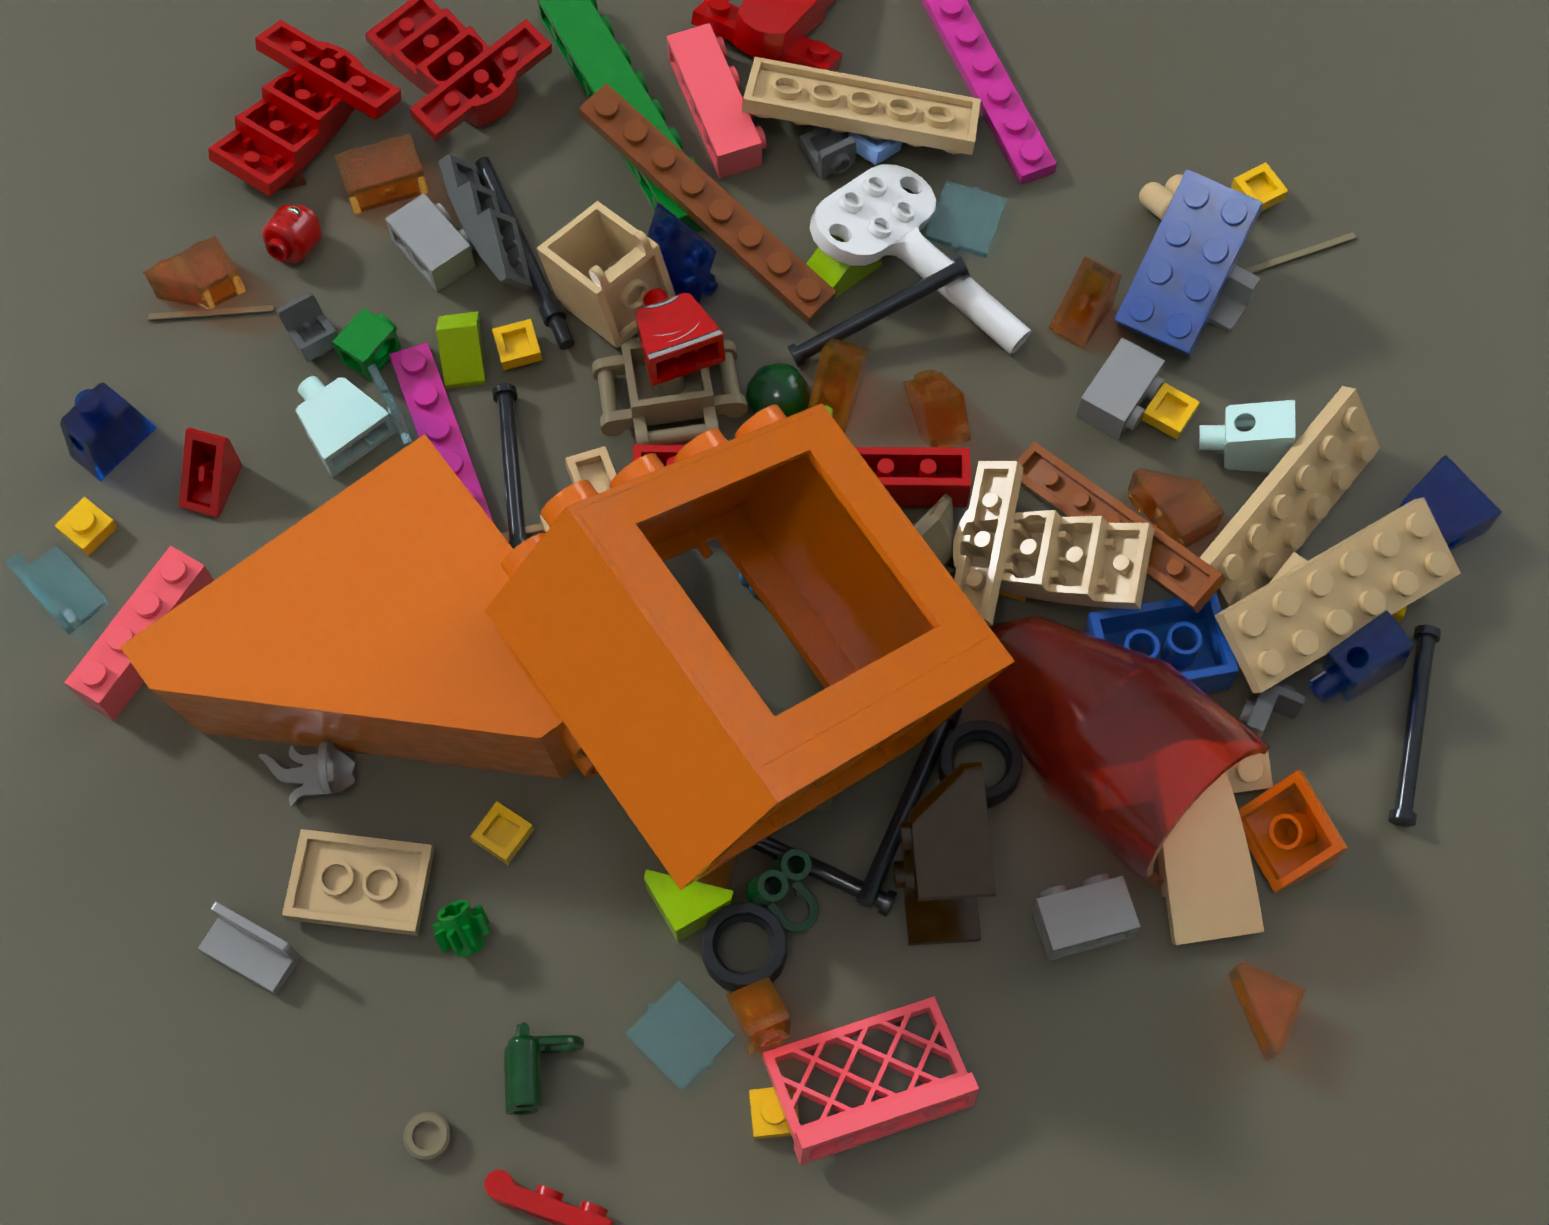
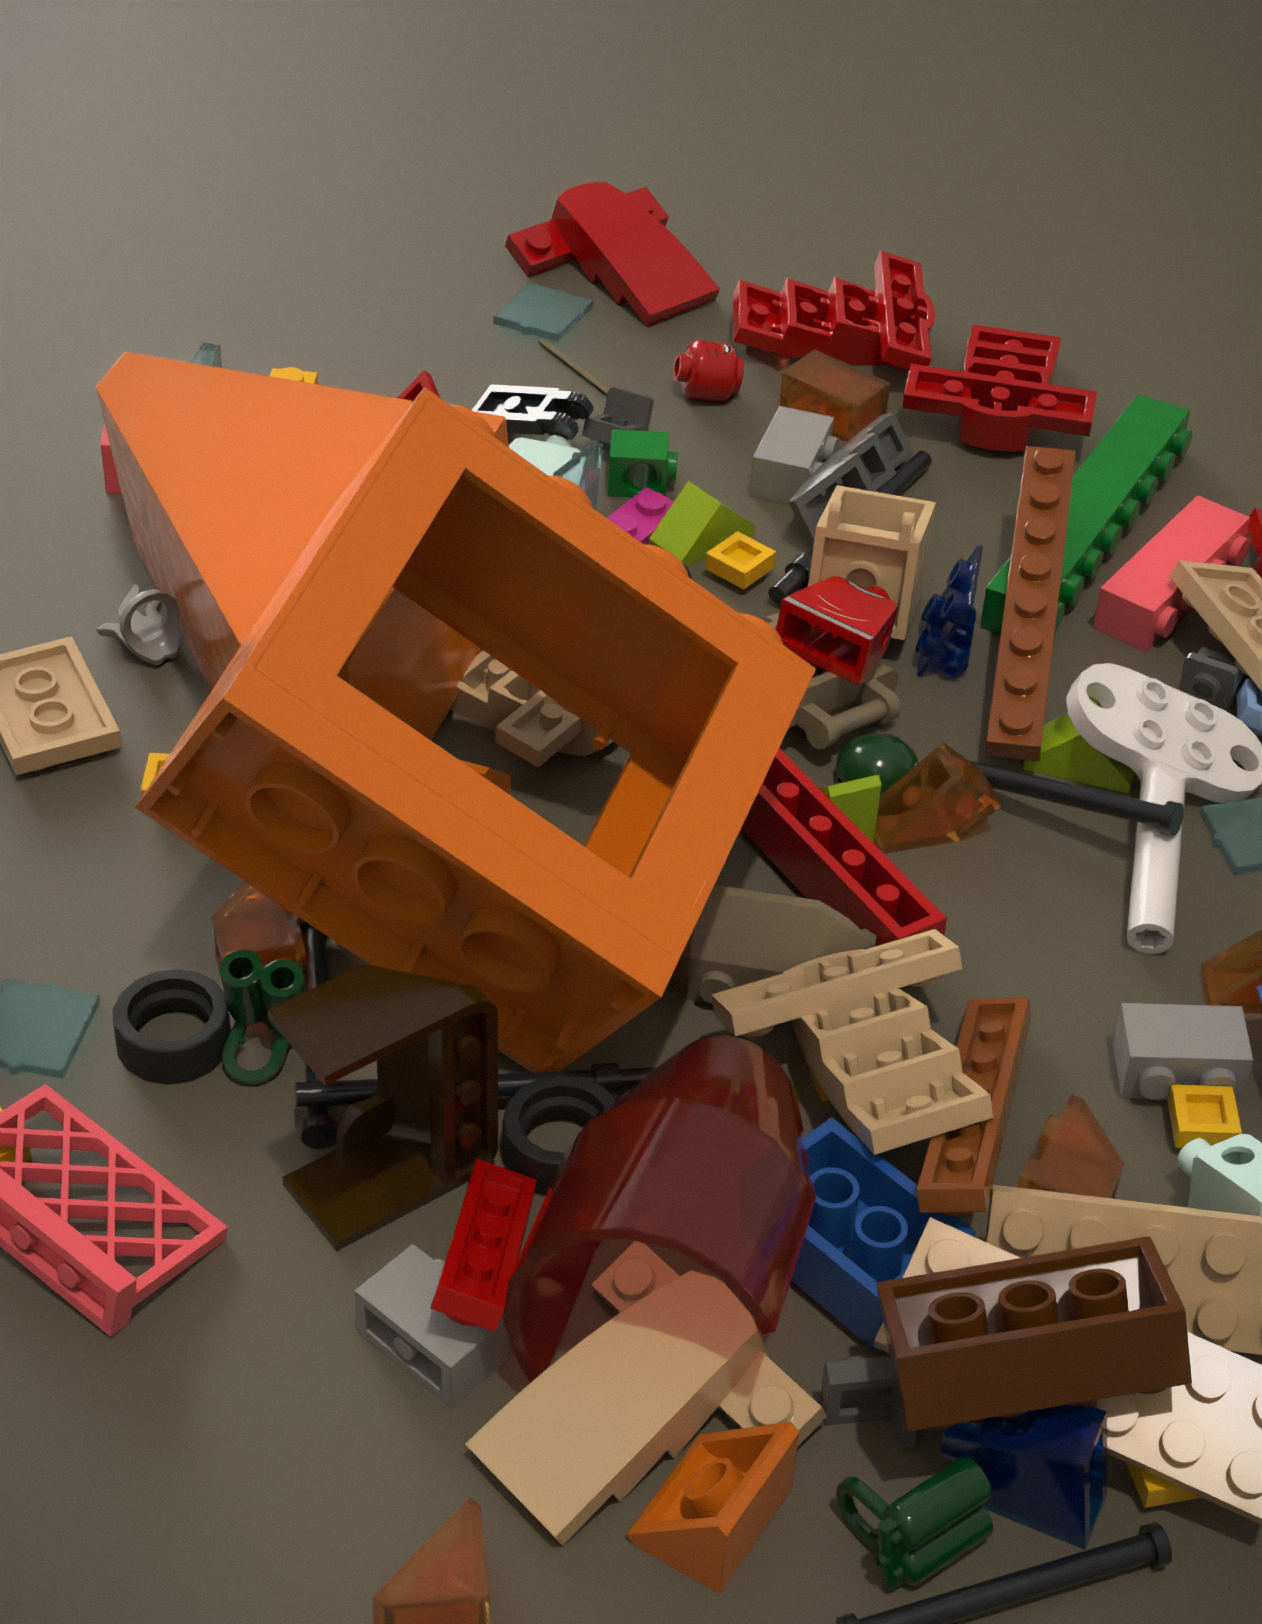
camera: 55 degrees right, 25 degrees down
(88, 197) = (620, 243): none -> red slope
(103, 429) = (392, 341): clear blue torso -> none
(115, 296) = (543, 312): none -> clear light blue piece
(196, 276) = (608, 338): clear orange slope -> none
(257, 382) = (536, 409): none -> black hinge
(461, 928) = (39, 790): green gear -> none
(688, 908) = (184, 939): lime slope -> none
(760, 1016) = (87, 1060): clear orange slope -> none
(938, 409) = (985, 896): clear orange slope -> none
(1065, 858) = (484, 1246): none -> red plate
(1328, 613) = (1034, 1334): none -> reddish brown slope
(1369, 740) = (923, 1526): none -> dark green piece

